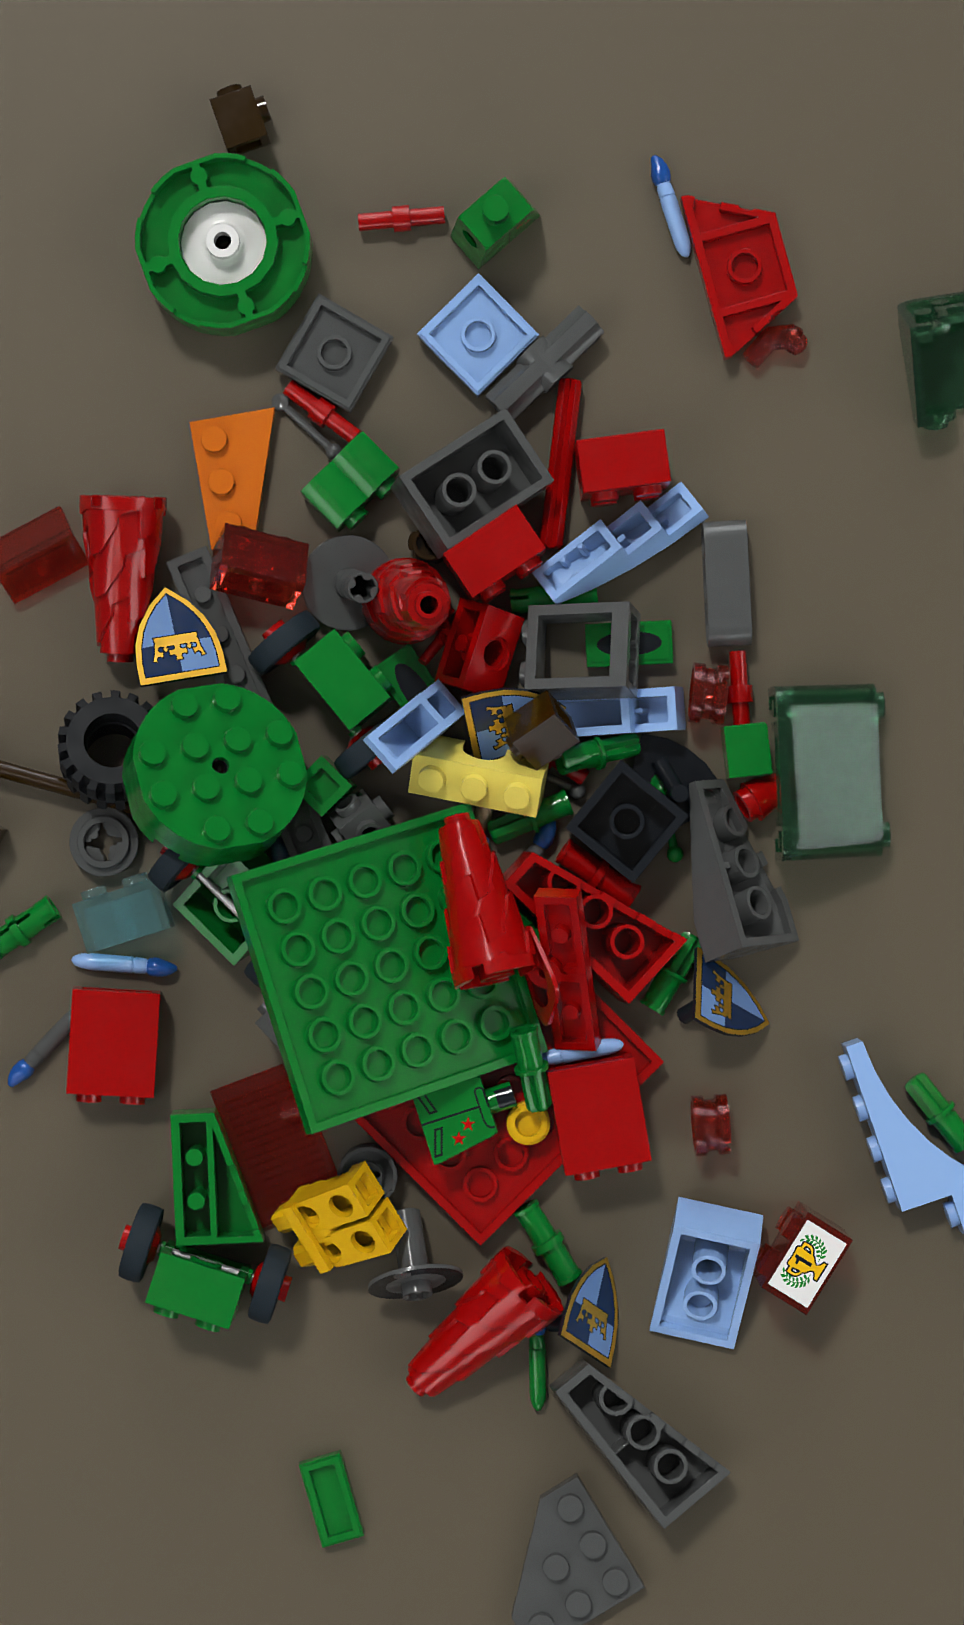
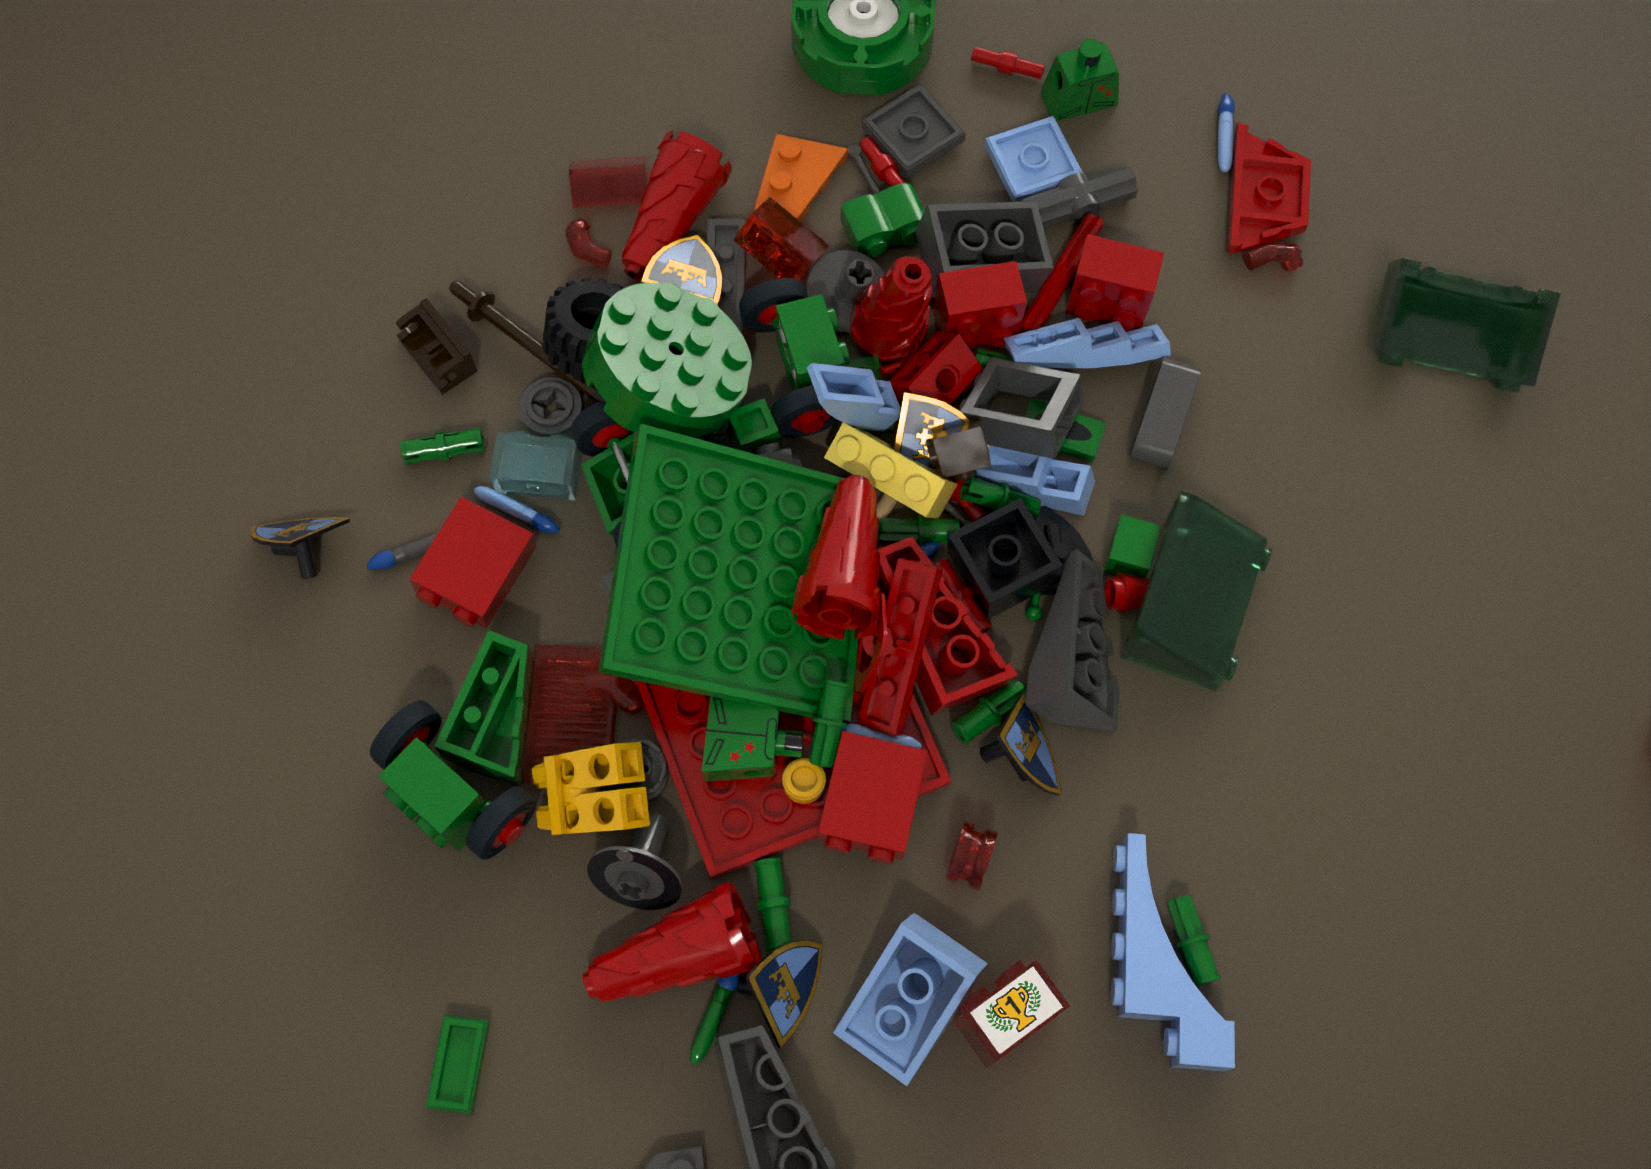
camera: 20 degrees right, 20 degrees down
(46, 645) = (582, 245): none -> clear red arm
(708, 693) = (1116, 488): clear red wheel -> none
(739, 692) = (1143, 502): red bar -> none

